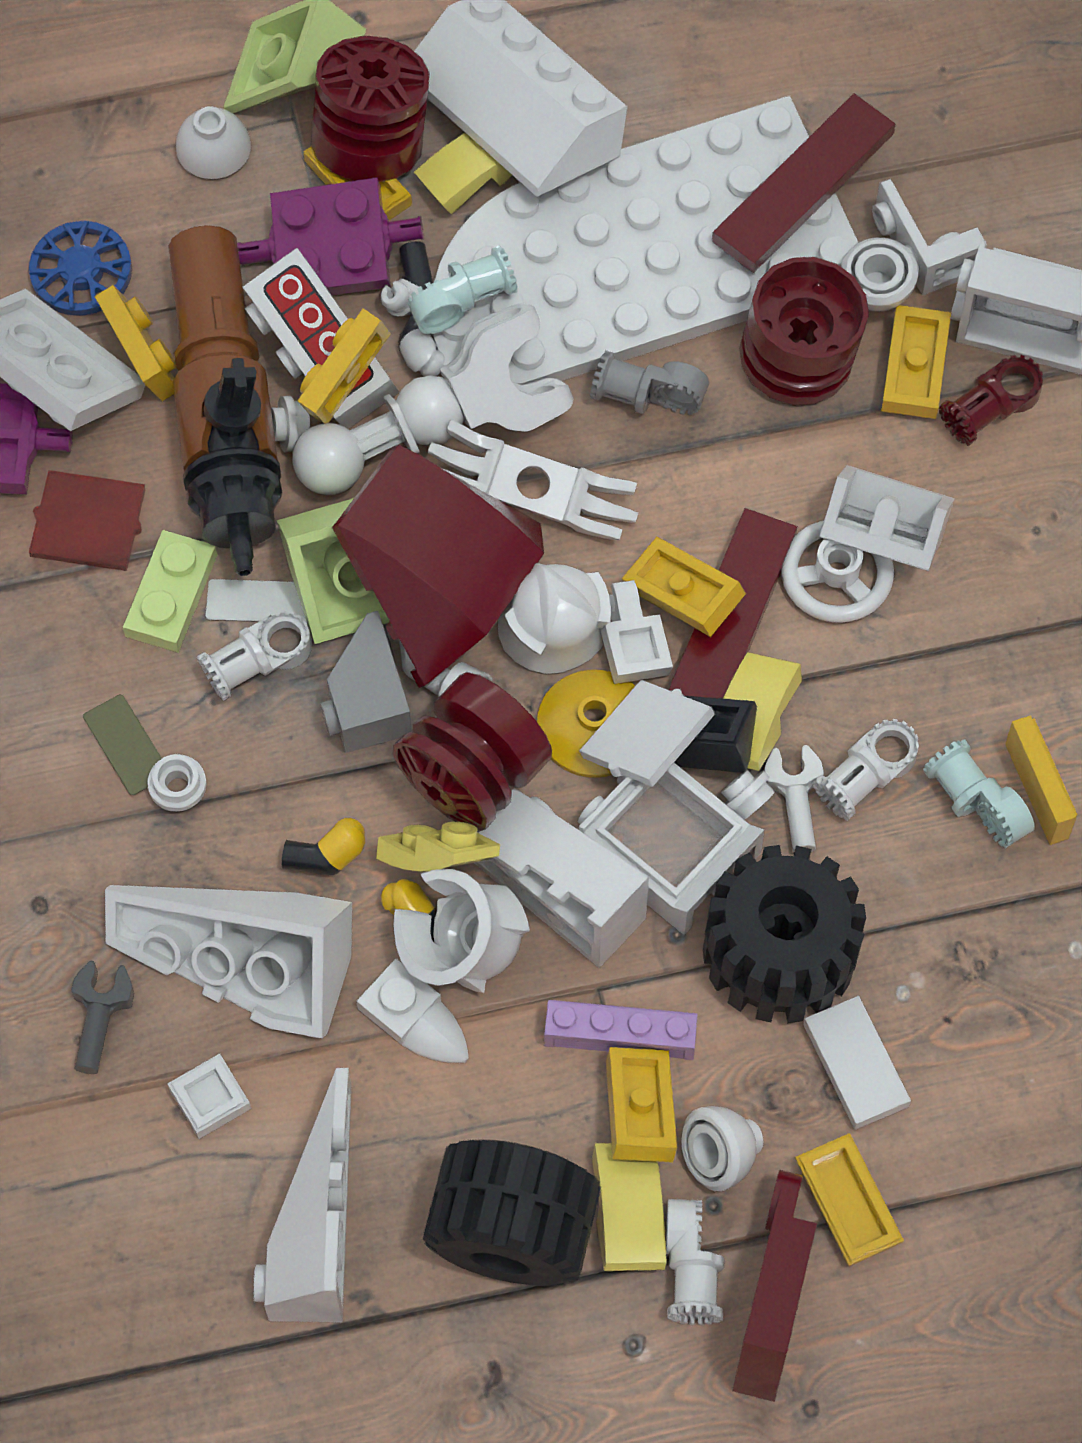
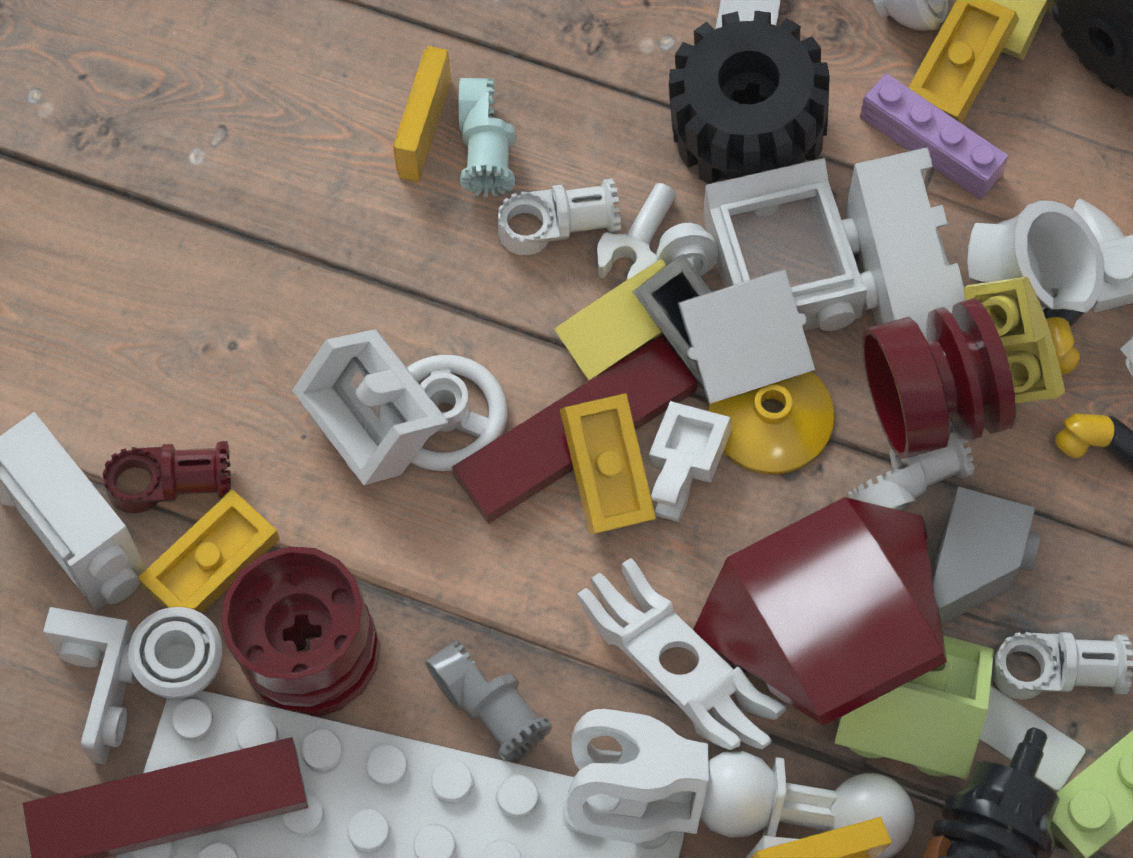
camera: 145 degrees left, 0 degrees up
(555, 619) = (739, 505): white helmet -> none

